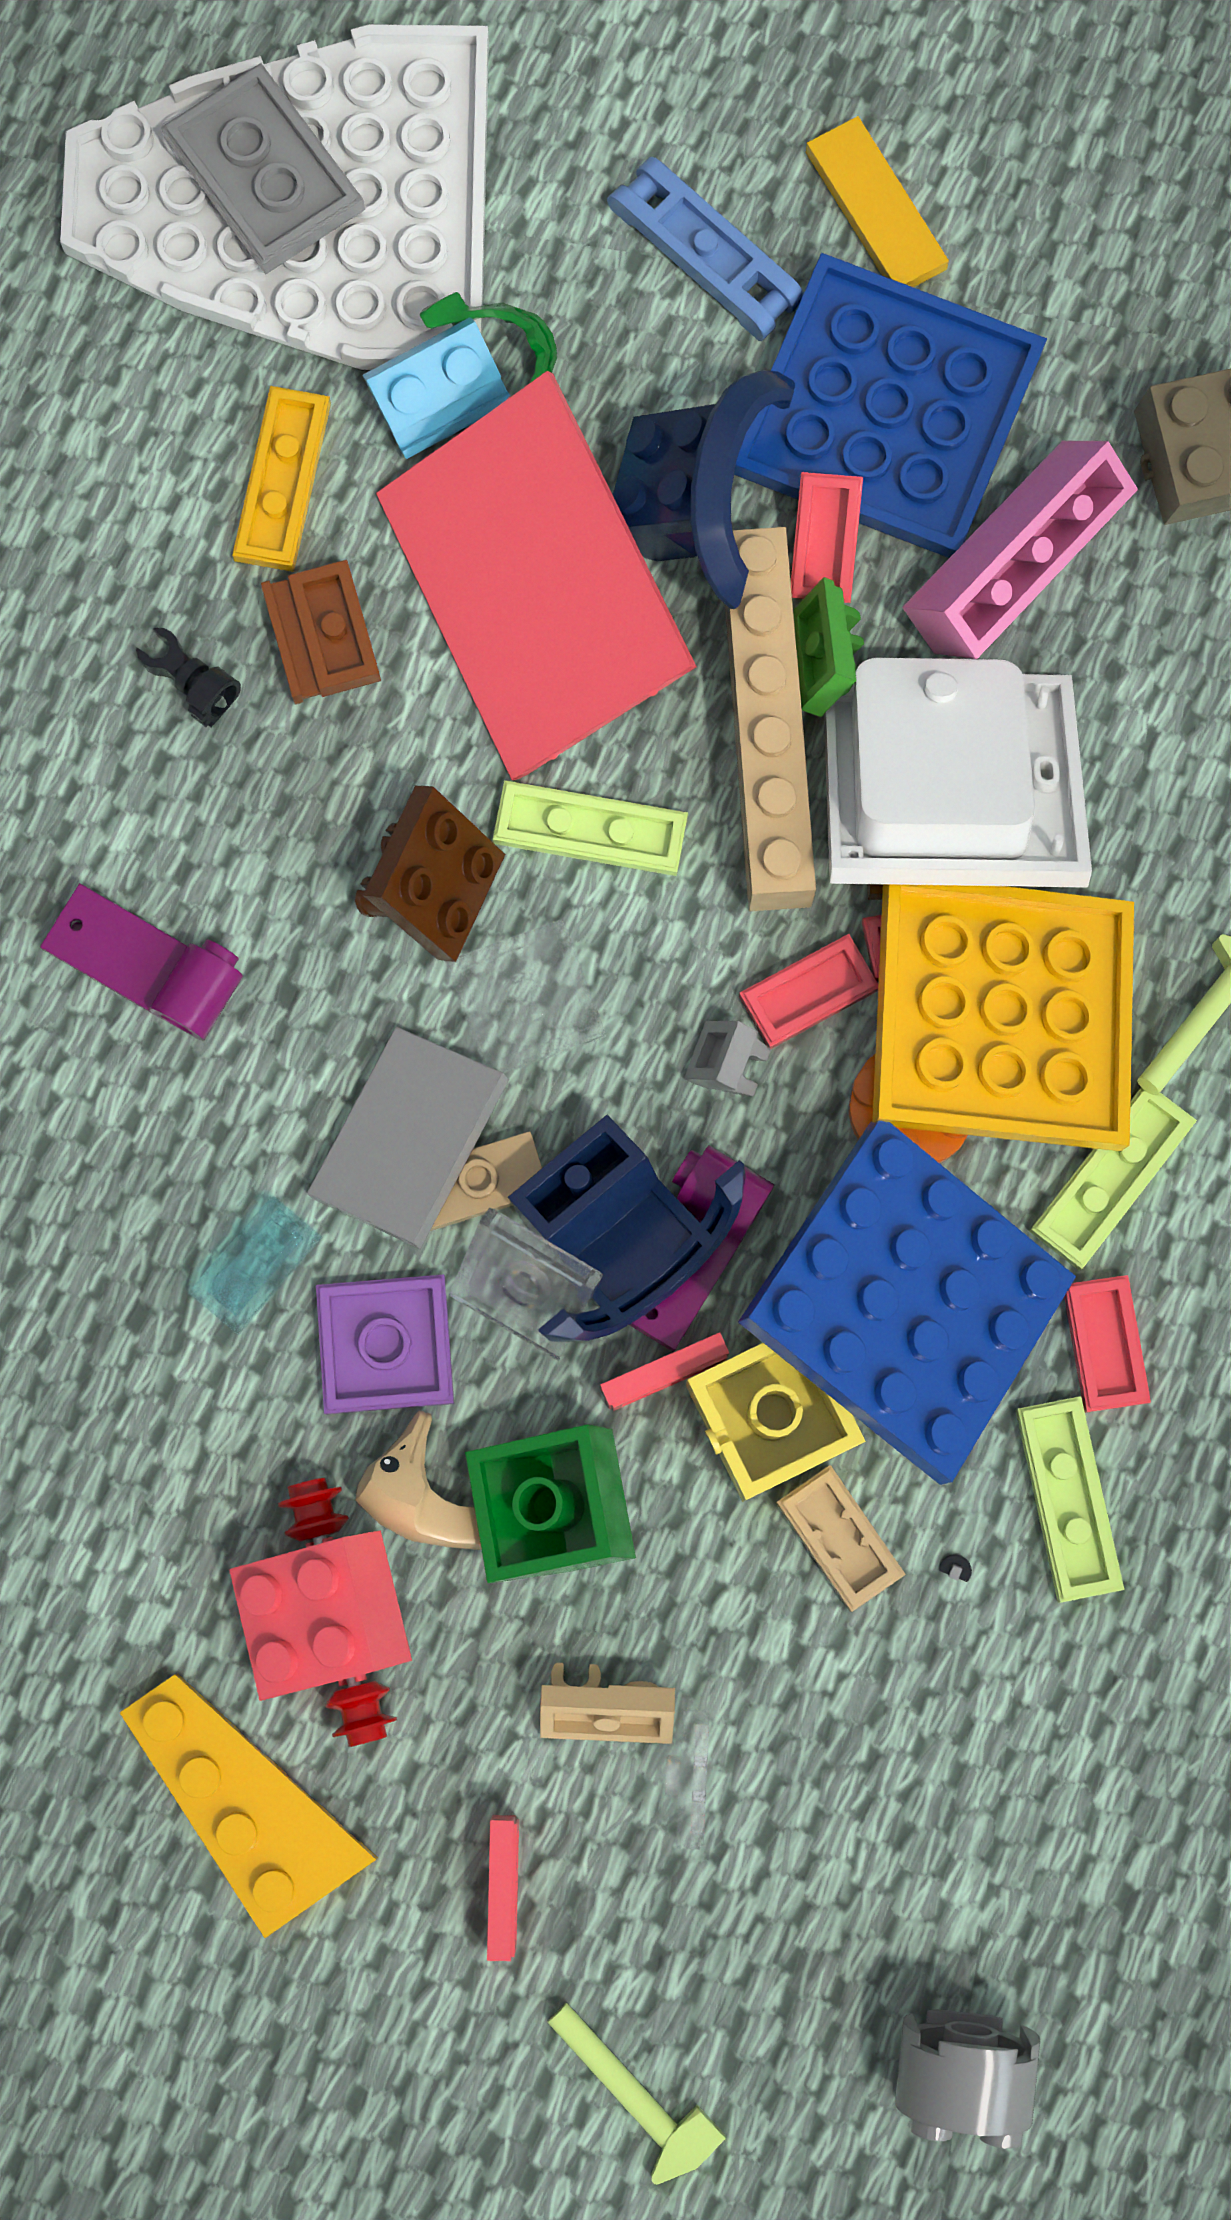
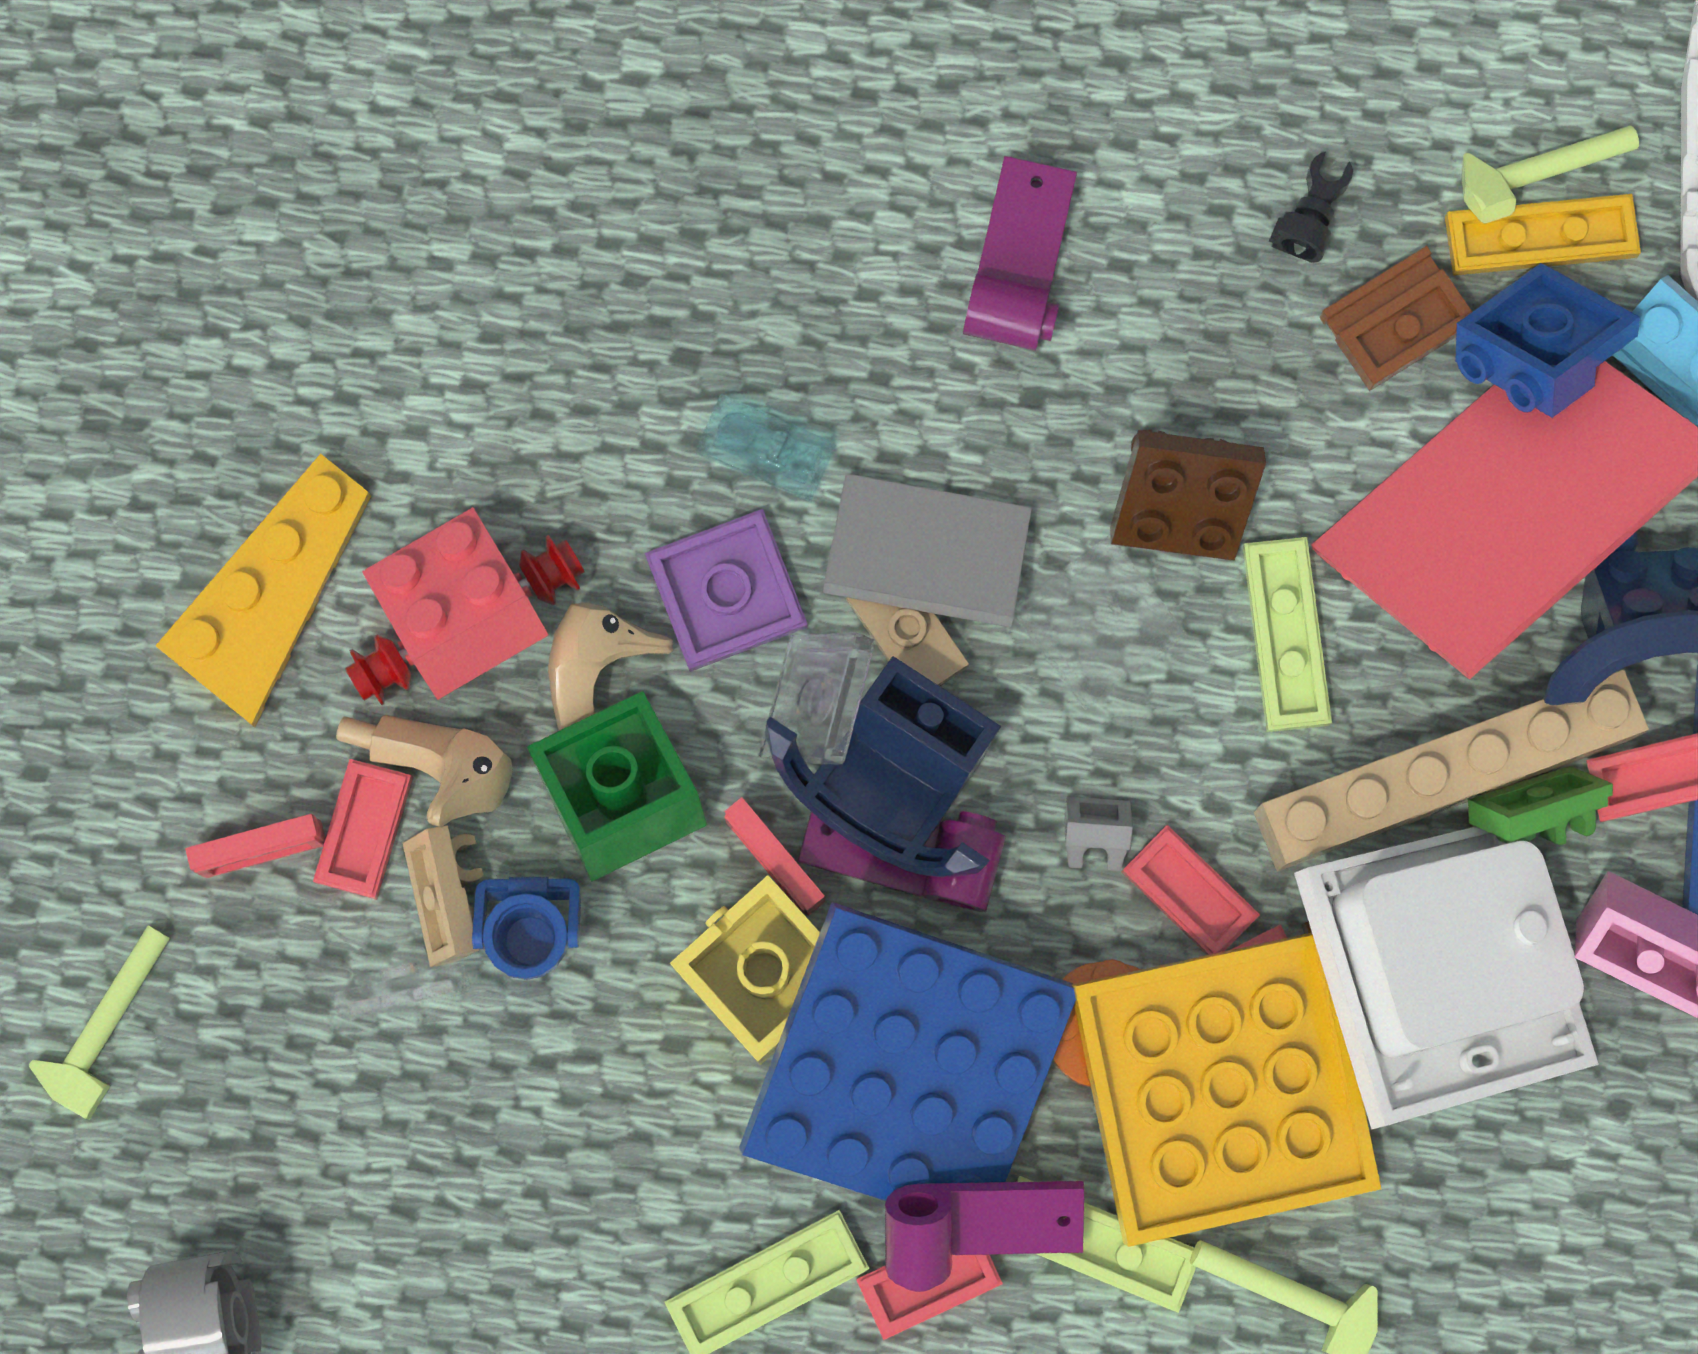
camera: 75 degrees right, 0 degrees up
(224, 510) = (1489, 189): none -> yellowish green piece
(387, 506) = (1542, 340): none -> blue plate
(482, 1651) = (466, 763): none -> tan animal
(514, 1774) = (363, 829): none -> coral tile
(672, 1634) = (525, 931): none -> blue piece
(840, 1538) = (665, 1071): tan plate -> none
(956, 1567) = (670, 1193): black piece -> none
(1058, 1311) = (947, 1219): none -> magenta door

